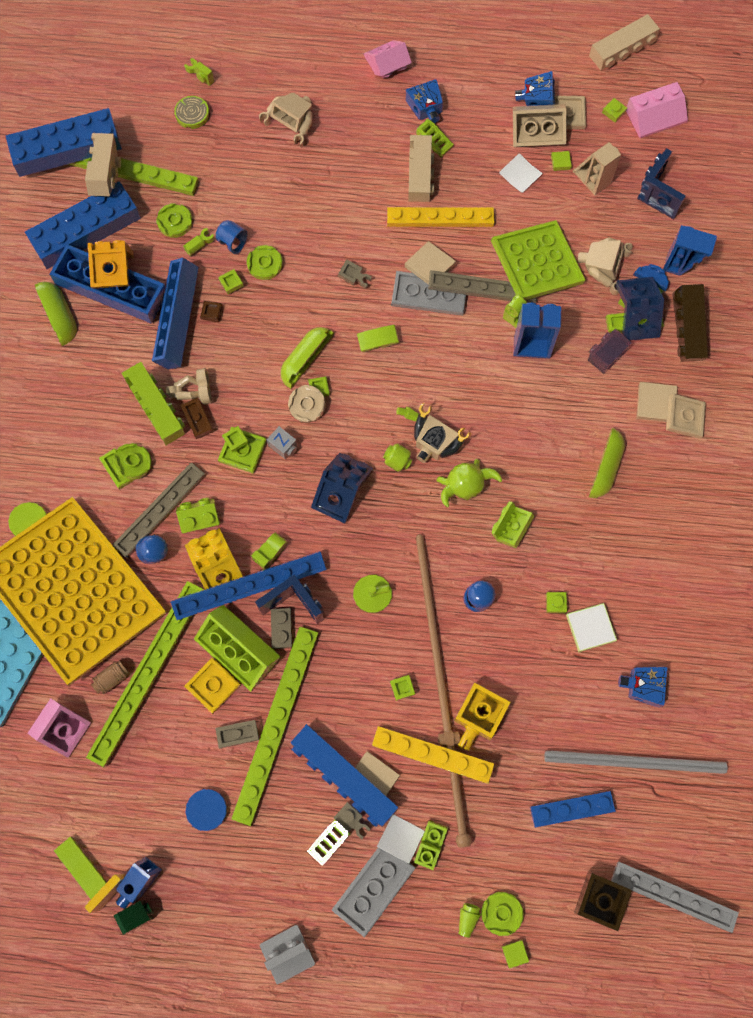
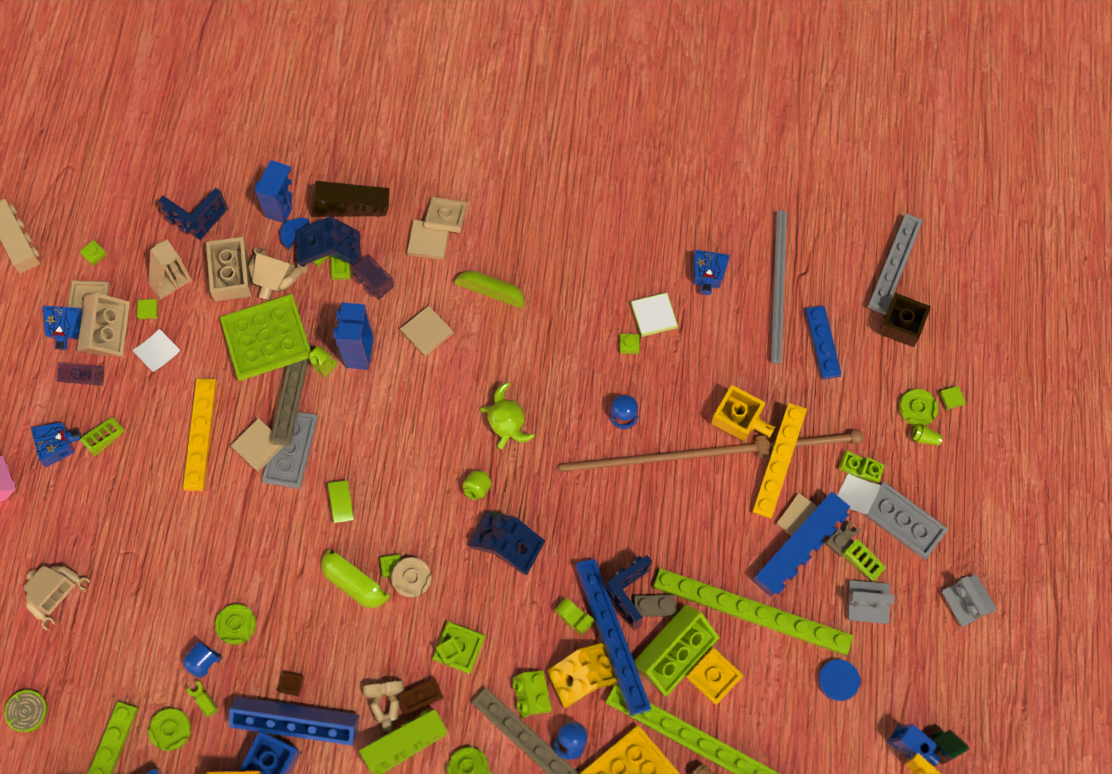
camera: 90 degrees left, 5 degrees down
(230, 281) = (257, 661): lime plate -> none
(237, 734) = (764, 649): dark tan plate -> none
(282, 443) = (455, 602): light grey brick -> none
(285, 845) = (869, 602): none -> light grey bracket
(351, 272) = (261, 527): dark tan plate -> none
(372, 593) = (618, 515): lime shield -> none
(402, 687) = (715, 487): lime plate -> none
(408, 413) = (429, 471): lime bar -> none
(420, 168) = (142, 450): tan wedge -> none
(436, 438) = (457, 446): torso -> none
(490, 112) = (80, 374): none -> brick
(512, 525) = (553, 377): lime bracket -> none
(556, 405) = (426, 331): none -> tan tile
(605, 219) = (228, 269): none -> tan brick
(657, 110) = (101, 210): bright pink slope -> none

